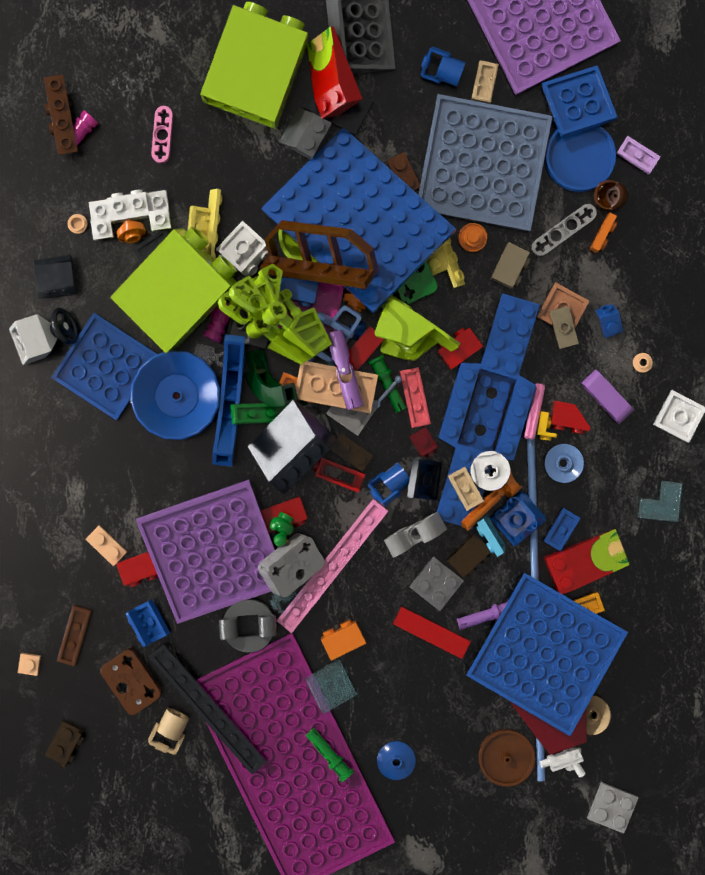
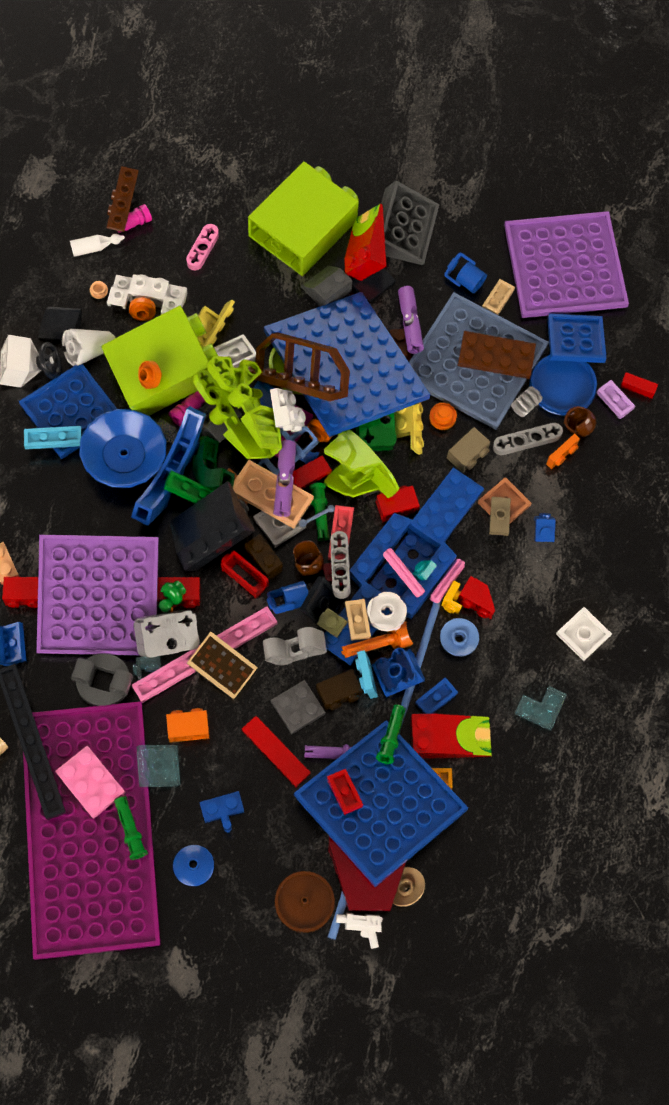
camera: 15 degrees right, 20 degrees down
(50, 174) = (93, 243): none -> white wheel
(93, 294) = (84, 344): none -> white cone
(101, 406) = (52, 437): none -> medium azure plate
(174, 317) = (149, 374): none -> orange plate
(276, 725) = (90, 782): none -> bright pink plate
(323, 306) = (285, 412): none -> white plate
(352, 572) = (222, 665): none -> tile
(391, 436) = (308, 558): none -> reddish brown helmet
(402, 137) = (410, 320): none -> medium lavender piece
(402, 701) = (222, 808): none -> blue plate
(425, 437) = (342, 564): none -> light grey beam
(441, 498) = (332, 622): none -> olive bracket
(492, 424) = (403, 572): none -> bright pink axle
(505, 151) = (496, 354): none -> reddish brown plate
(511, 415) = (424, 569): none -> teal plate
(512, 660) = (344, 791): none -> red plate
(536, 597) = (389, 741): none -> green pin
(551, 193) = (526, 401): none -> light grey gear
(607, 396) = (520, 592): medium lavender beam -> none
(612, 807) = (394, 993): light grey plate -> none
(636, 362) = (559, 578): light nougat plate -> none
(651, 129) = (639, 385): none -> red piece

